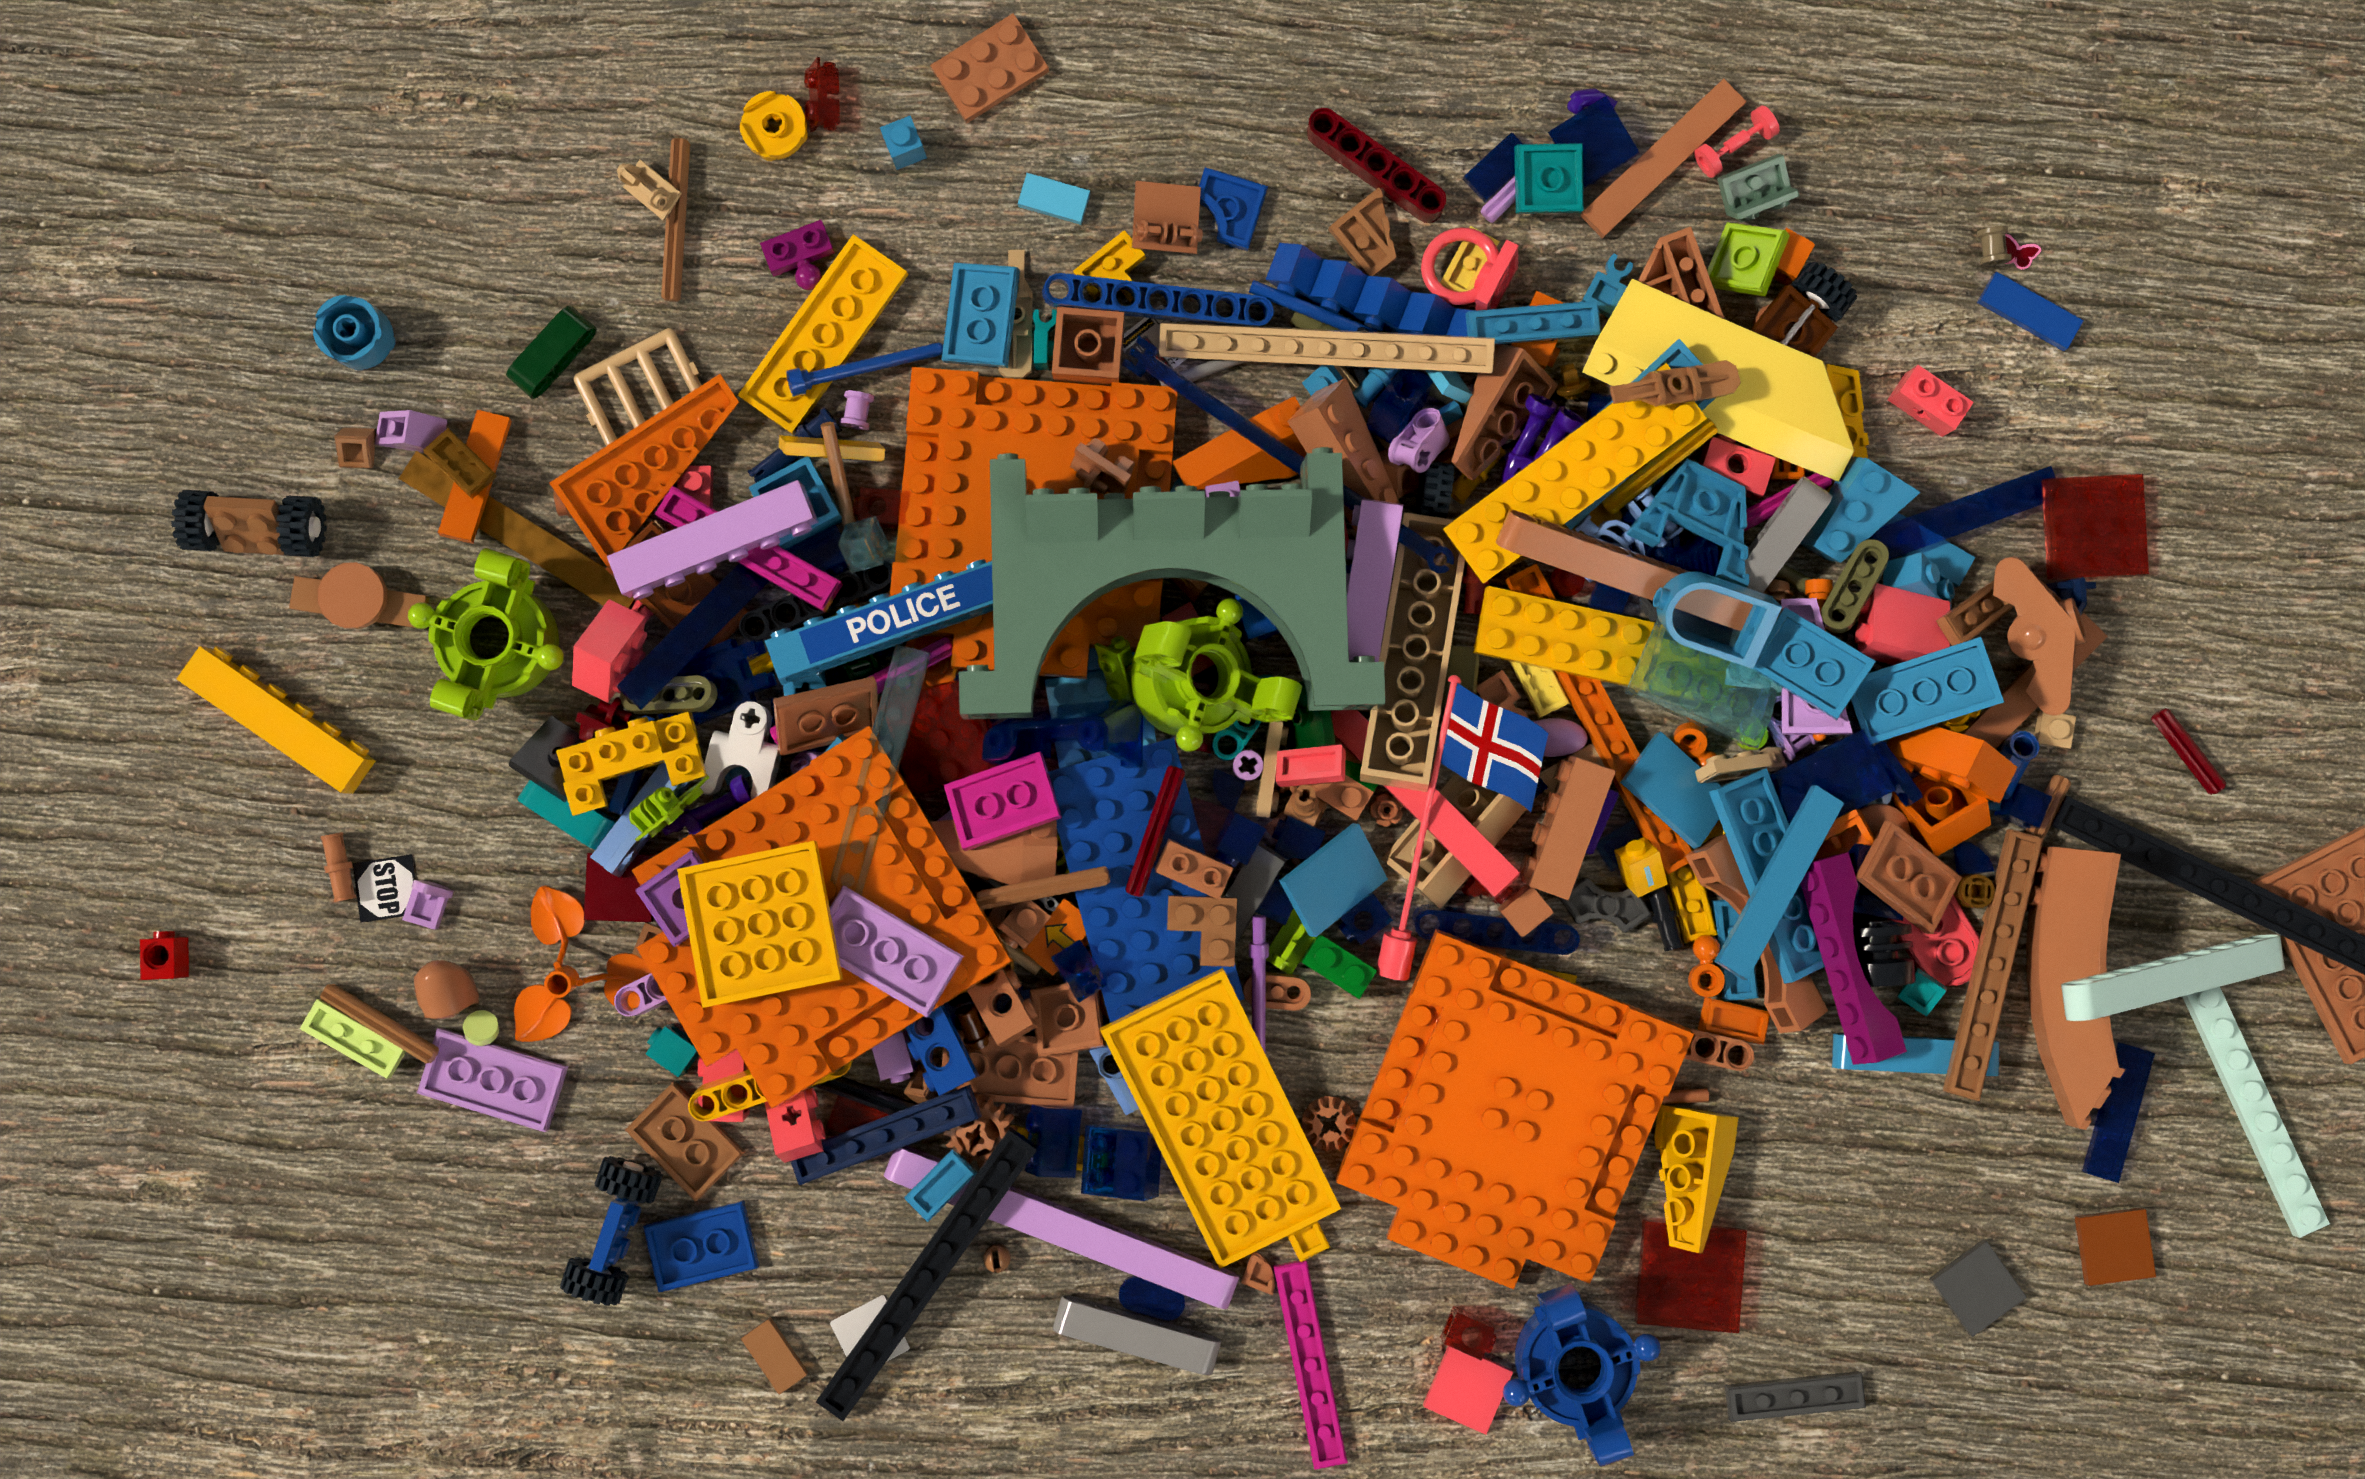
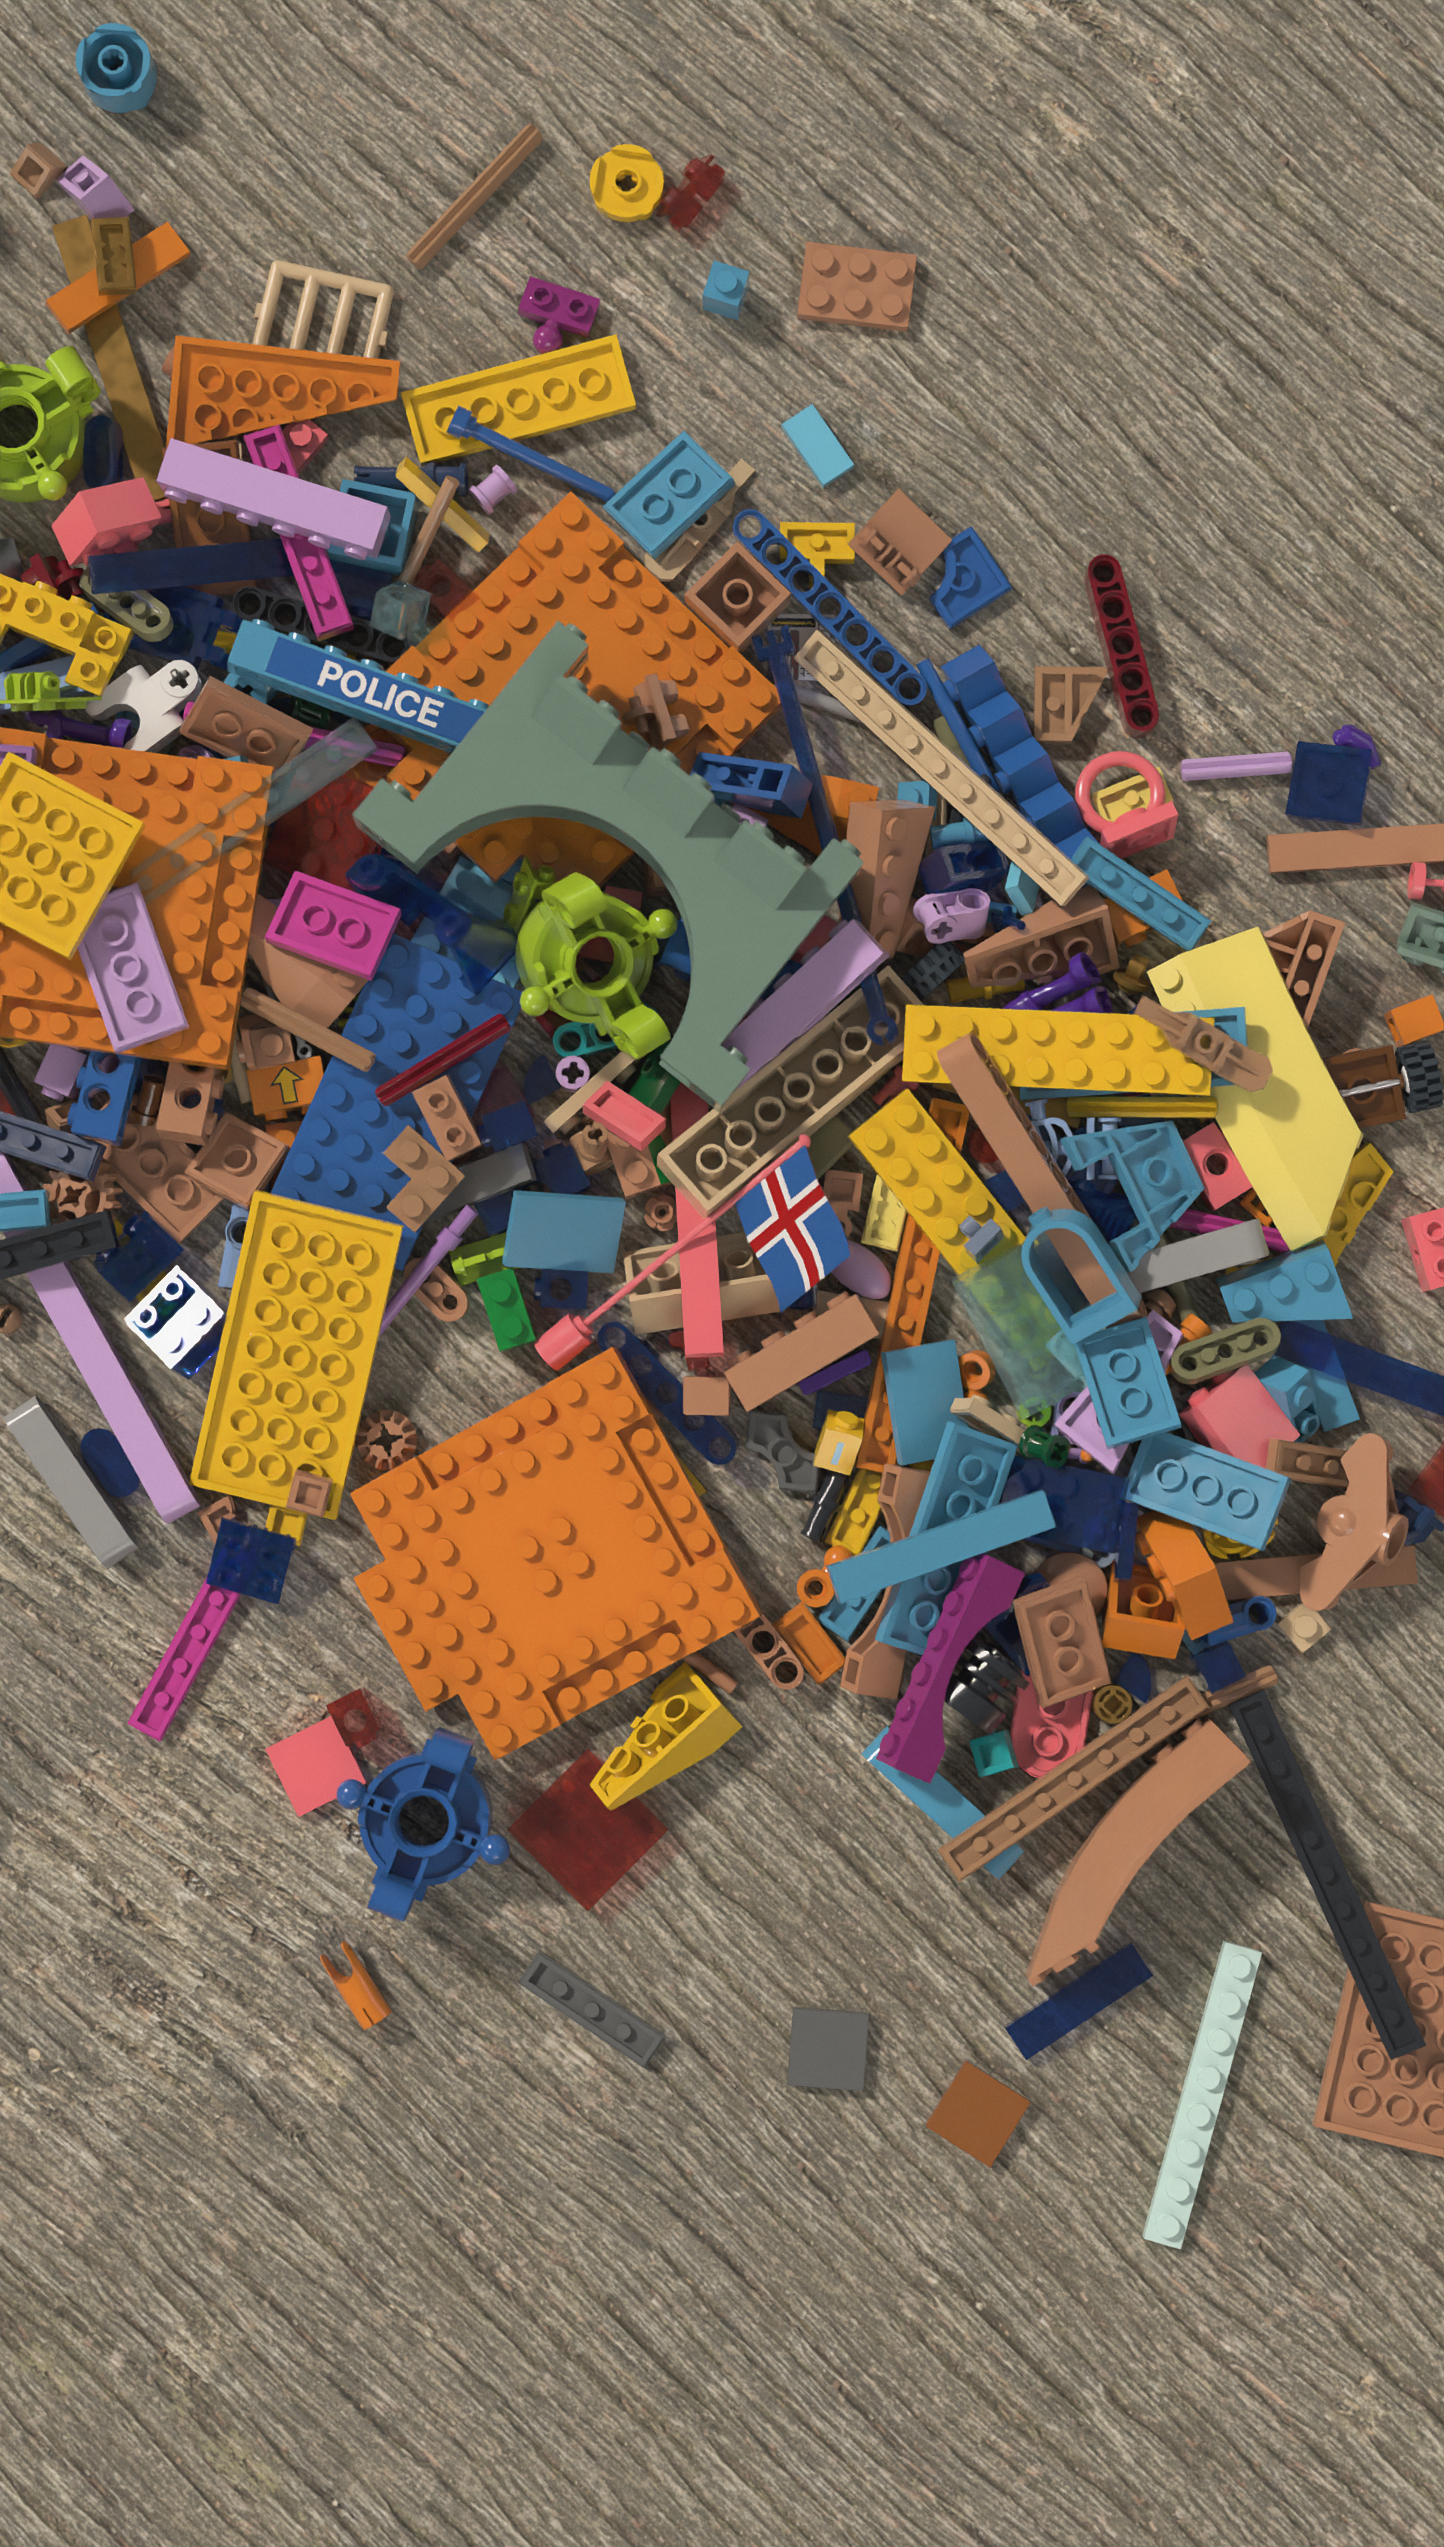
camera: 40 degrees right, 0 degrees up
(551, 352) = (272, 224): dark green beam -> none
(565, 605) = (102, 452): none -> tile
(649, 188) = (473, 150): tan hinge -> none
(1042, 344) = (702, 561): teal plate -> none
(1079, 971) = (279, 1127): clear blue brick -> none
(1210, 462) = (755, 783): none -> blue slope
(1307, 1285) = (250, 1560): none -> clear blue hinge
(1309, 1206) = (309, 1493): none -> nougat tile
(1456, 419) = (1004, 920): none -> clear blue hand
(1494, 169) = (1228, 736): clear blue tile -> none
(1549, 178) = (1262, 781): teal tile -> none
(1607, 288) = (1232, 918): dark azure plate -> none
(1625, 647) = (980, 1238): none -> sand blue tile
(1747, 258) = (1375, 992): lime tile -> none
(1786, 753) = (1038, 1444): none -> dark green bush
(1846, 832) = (1036, 1556): orange hinge -> none
(2171, 977) = (1211, 1909): light aqua beam -> none
(2188, 751) = (1405, 1742): dark red axle -> none

